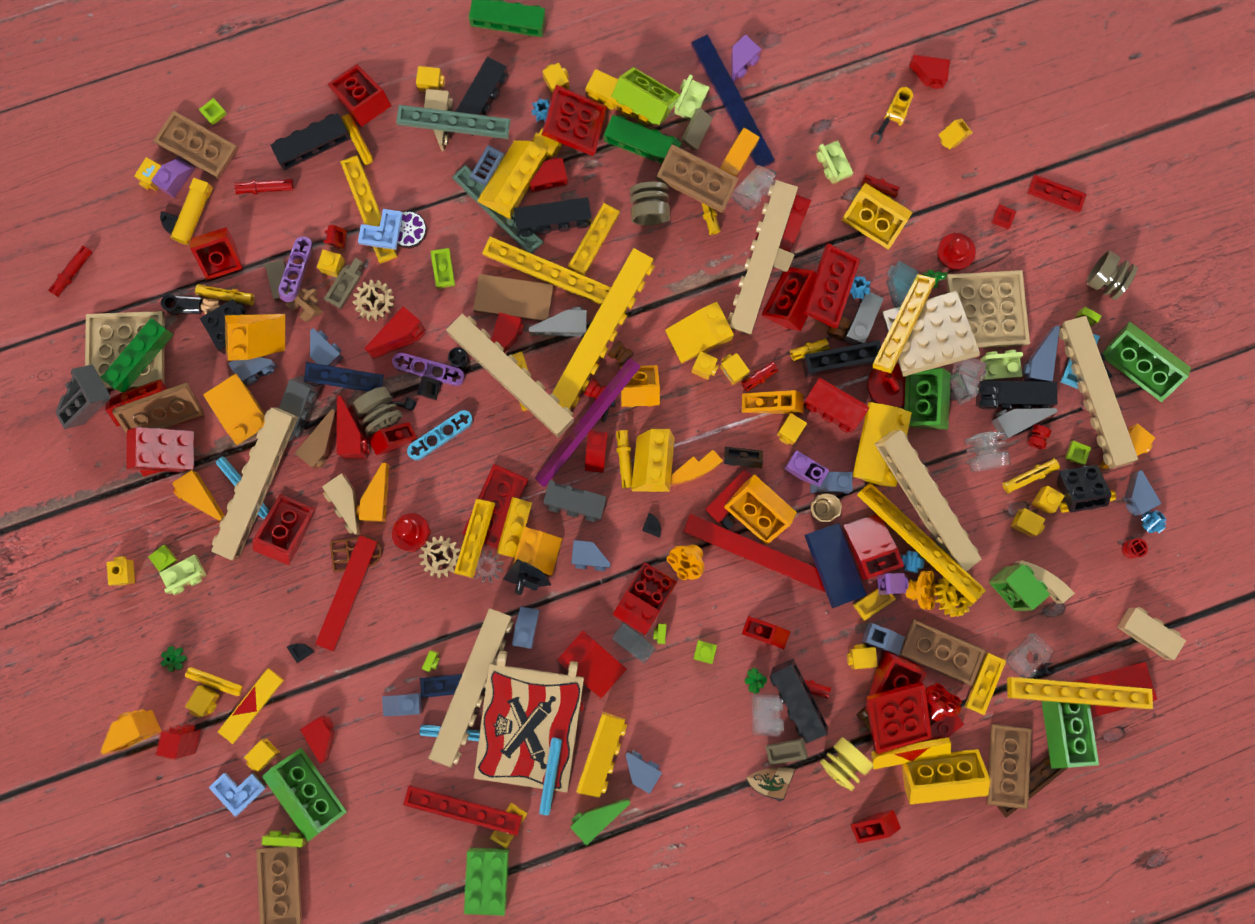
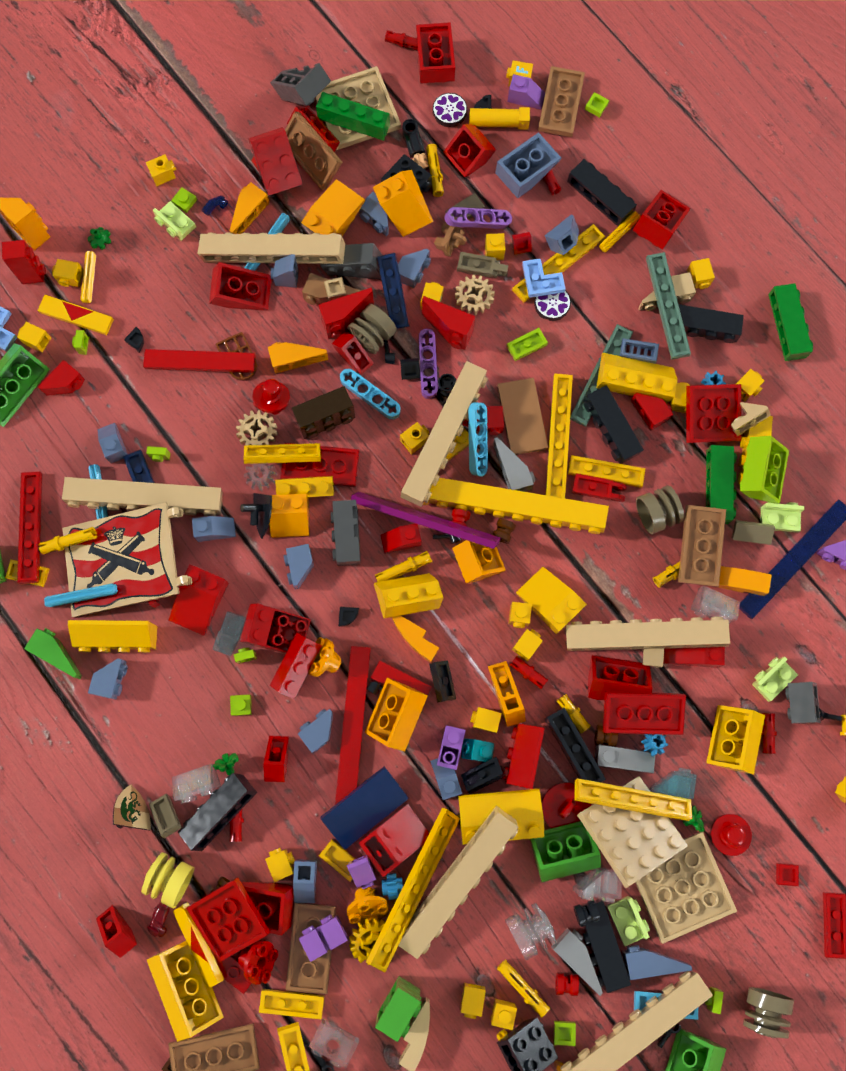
camera: 75 degrees right, 5 degrees down
(94, 249) = (435, 53): none -> red slope
(162, 257) = (449, 109): none -> tile
(177, 528) = (212, 203): none -> clear blue arm
(255, 201) = (527, 165): none -> sand blue slope
(283, 478) = (285, 272): none -> sand blue slope
(284, 708) = (80, 342): none -> lime plate
(321, 433) = (335, 288): none -> tan tile
(344, 194) = (563, 236): none -> sand blue slope
(345, 500) = (284, 329): tan slope -> none
(358, 341) = (433, 291): none -> yellow brick
(448, 484) = (324, 413): none -> dark brown brick
(490, 784) = (60, 543): none -> yellow pin
(500, 406) = (414, 437): none -> yellow brick
(525, 346) = (480, 439): none -> medium azure beam
(591, 85) = (754, 415): none -> tan slope
(607, 253) = (597, 487): none -> red hinge
(686, 588) = (295, 666): none -> red brick
(754, 587) = (318, 732): none -> sand blue slope
(816, 446) = (477, 750): none -> teal bracket
(825, 507) = (419, 779): tan hair -> none
(840, 449) = (483, 775): none -> black plate
(864, 145) = (803, 703): none -> dark grey brick
(882, 787) = (159, 915): none -> dark red arm
(937, 636) = (323, 937): none -> medium lavender piece

